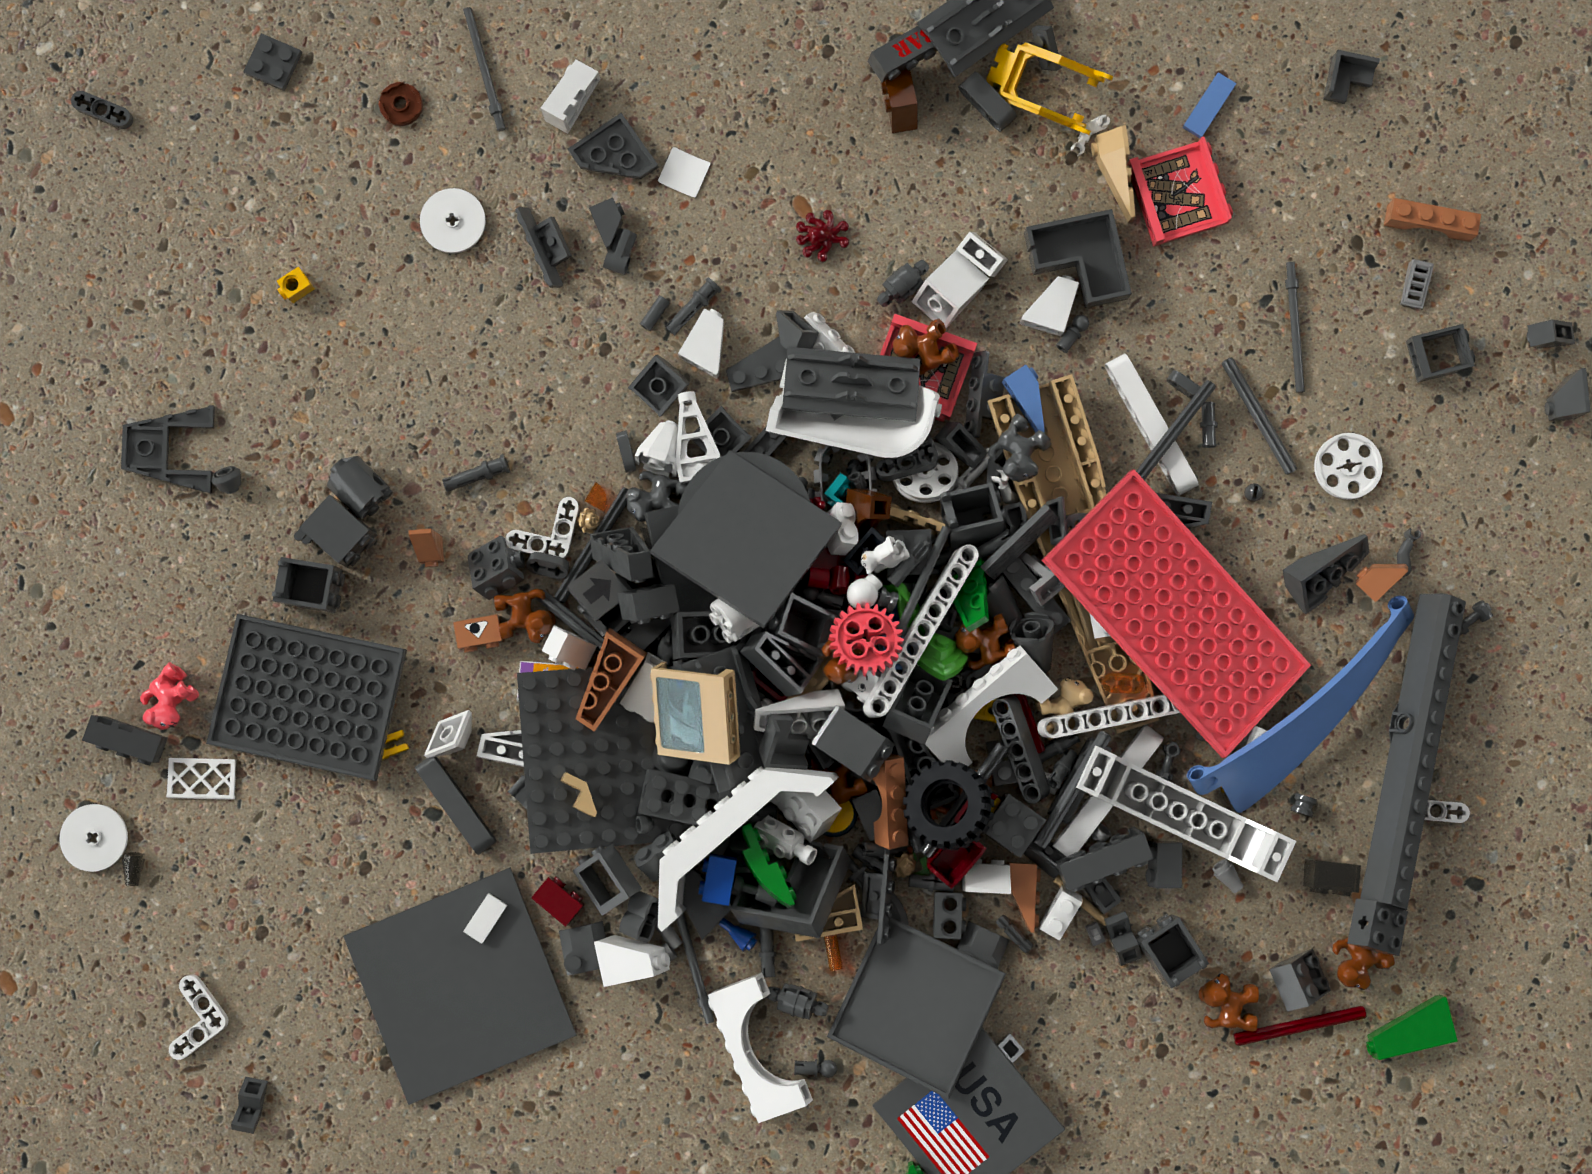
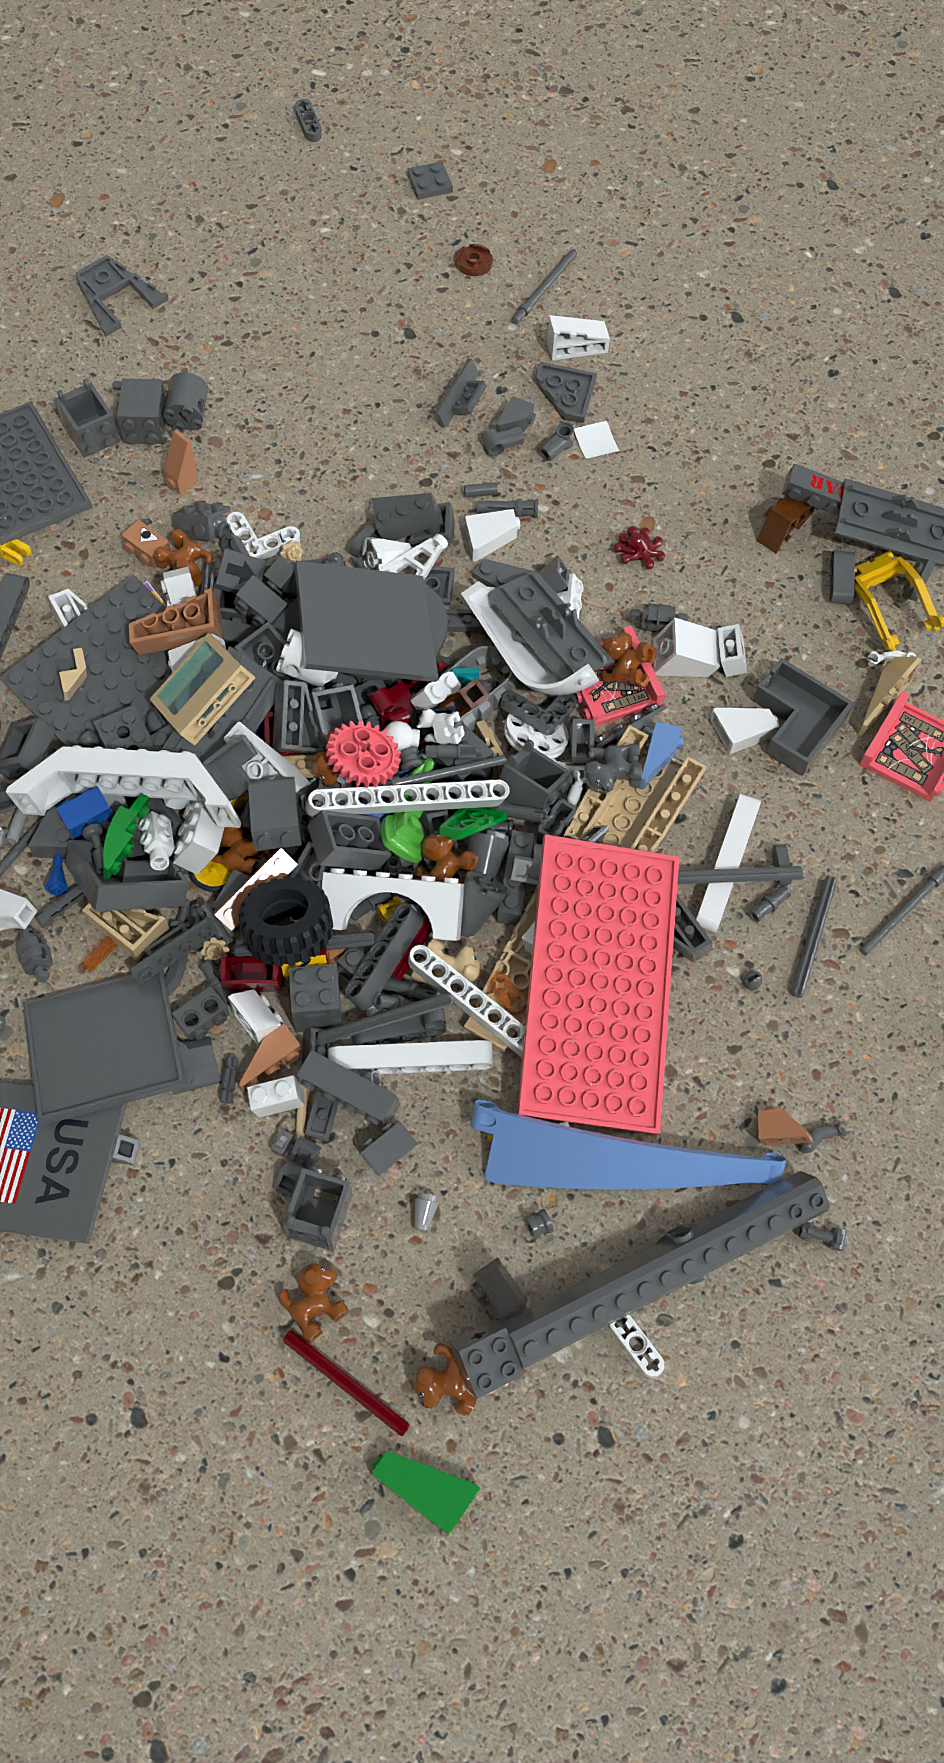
camera: 45 degrees right, 20 degrees down
(227, 479) = (122, 333): dark grey cone -> none
(304, 285) = (293, 282): yellow brick -> none
(450, 735) = (50, 579): white slope -> none
(466, 230) = (413, 330): white piece -> none
(485, 470) = (269, 469): dark grey pin -> none
(597, 497) = (314, 548): clear orange tile -> none
(636, 403) = (405, 515): none -> dark grey wedge
(663, 210) = (560, 440): none -> dark grey piece
(1019, 542) = (544, 823): dark grey tile -> none
(1080, 324) = (750, 756): dark grey pin -> none
(1170, 750) = (487, 1082): dark grey bar -> none
(1185, 814) = (440, 1111): white slope -> none
(1300, 980) = (386, 1346): dark grey slope -> none
(1317, 573) = (738, 1080): dark grey wedge -> none
(1353, 457) = (852, 1042): white wedge -> none

